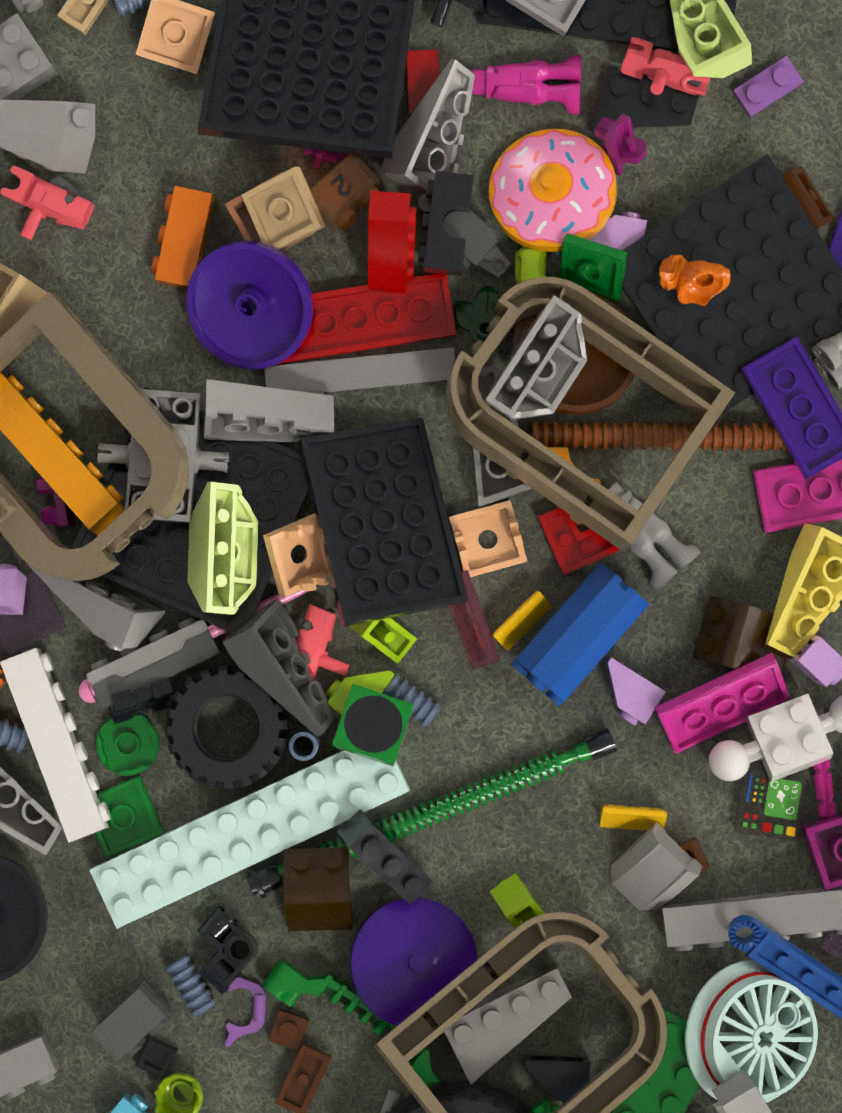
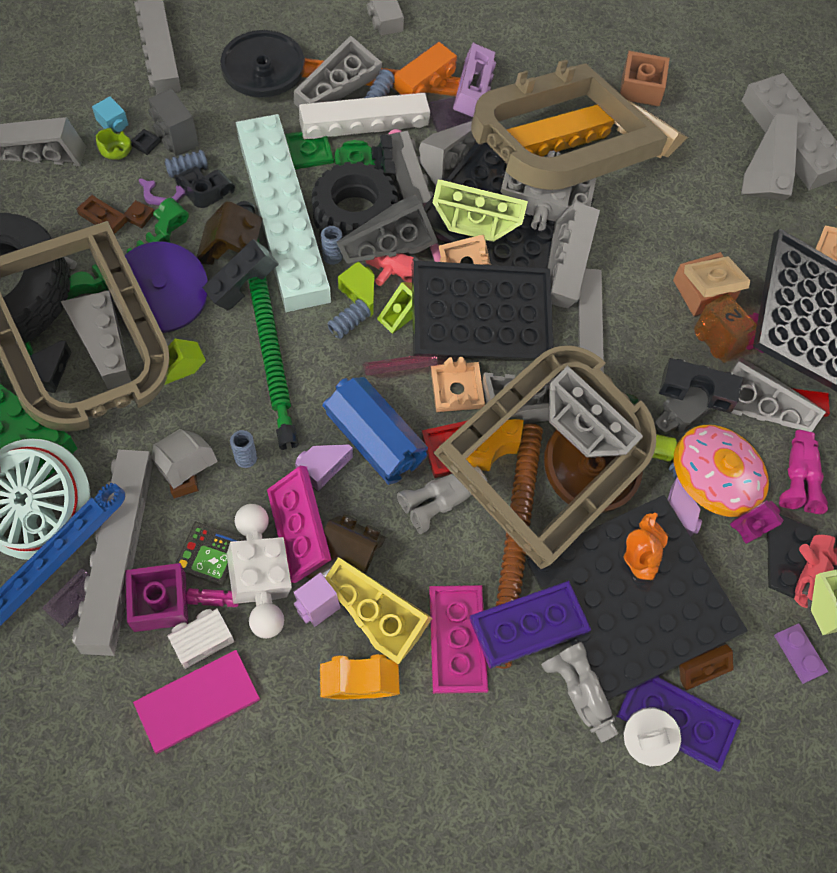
camera: 90 degrees right, 25 degrees down
(48, 199) = (725, 168): coral piece -> none
(182, 236) = (694, 235): orange brick -> none
(249, 304) = (648, 255): dark purple dish -> none
(372, 725) = (336, 279): black tile -> none
(377, 318) = (630, 331): red plate -> none
(390, 240) = (695, 333): red wedge -> none
(522, 620) = (394, 396): yellow slope -> none
(593, 266) = (660, 482): green tile -> none
(631, 817) = (224, 452): yellow slope -> none
(644, 801) = (243, 449): none -> sand blue piece

